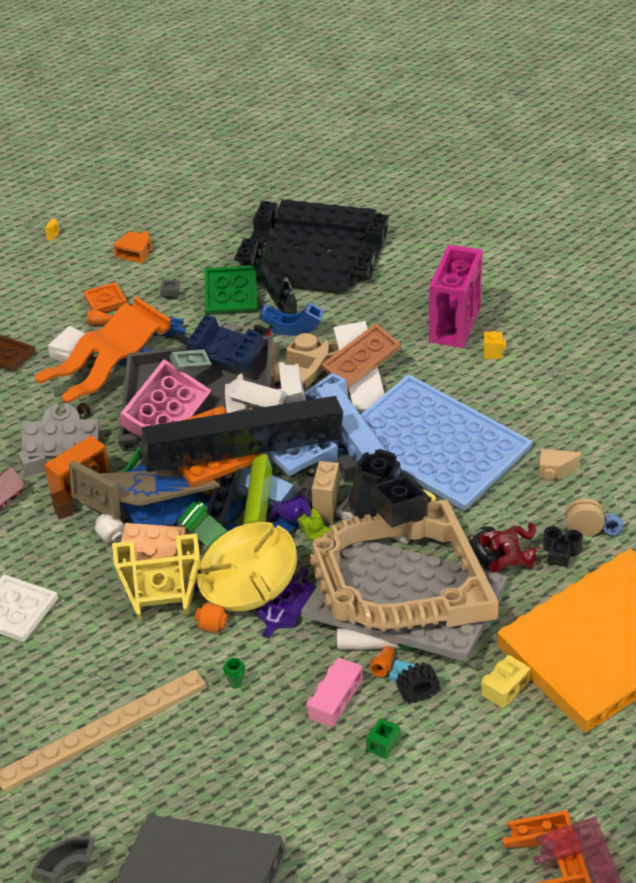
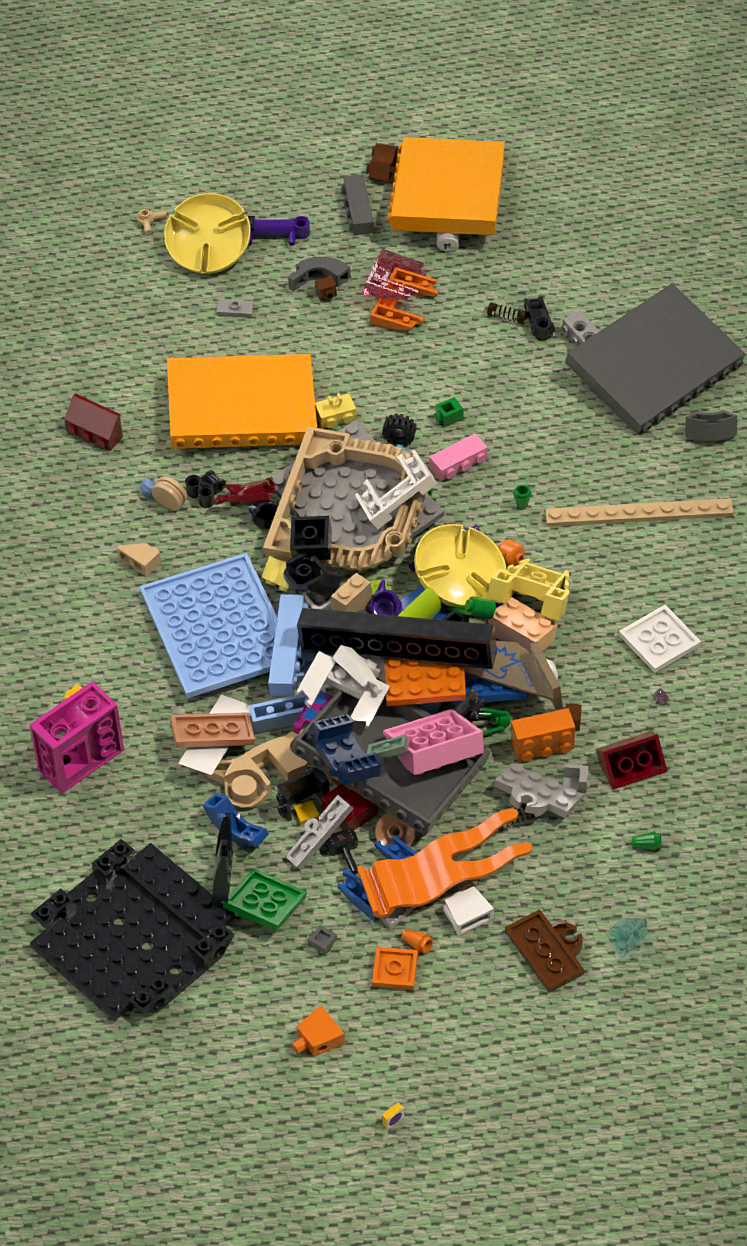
camera: 150 degrees left, 10 degrees up
(334, 576) = (418, 479): none -> white wedge

